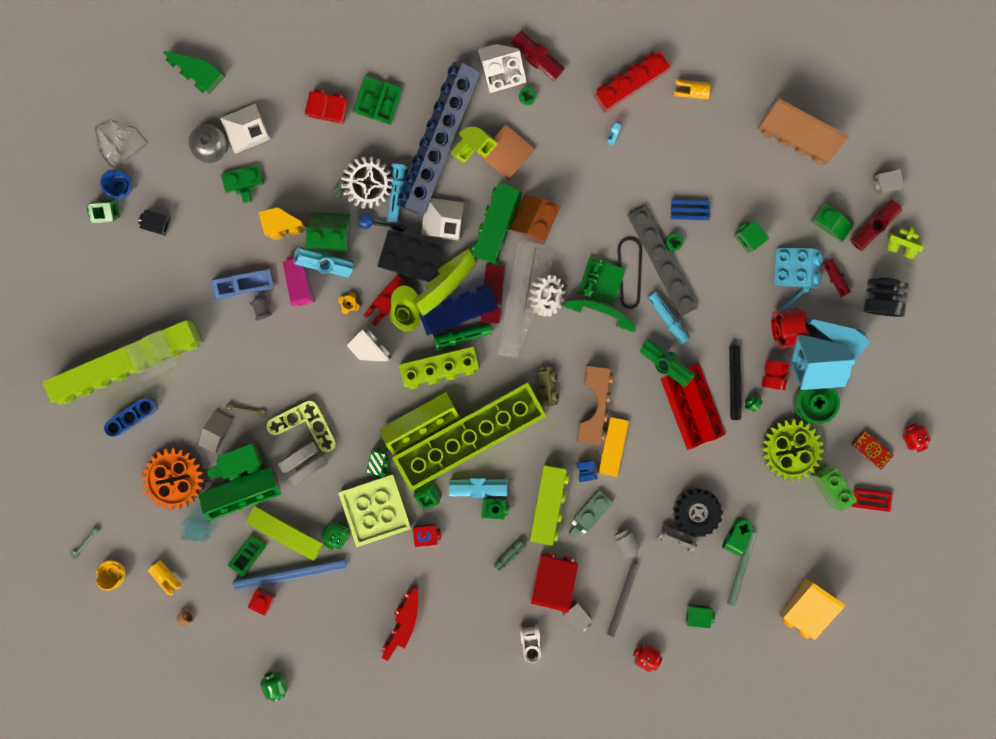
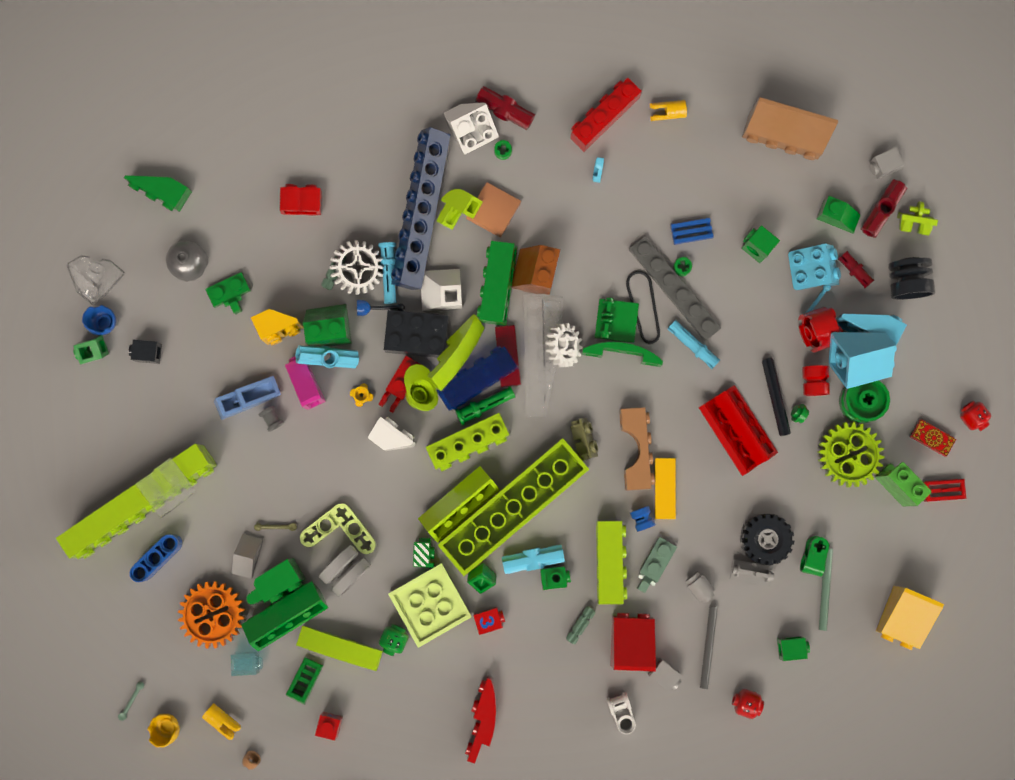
camera: 15 degrees left, 5 degrees down
(245, 128) = (222, 238): white slope -> none
(289, 574) = (352, 691): medium blue axle -> none
(377, 100) = (351, 184): green slope -> none
(674, 368) = (711, 394): green piece -> none

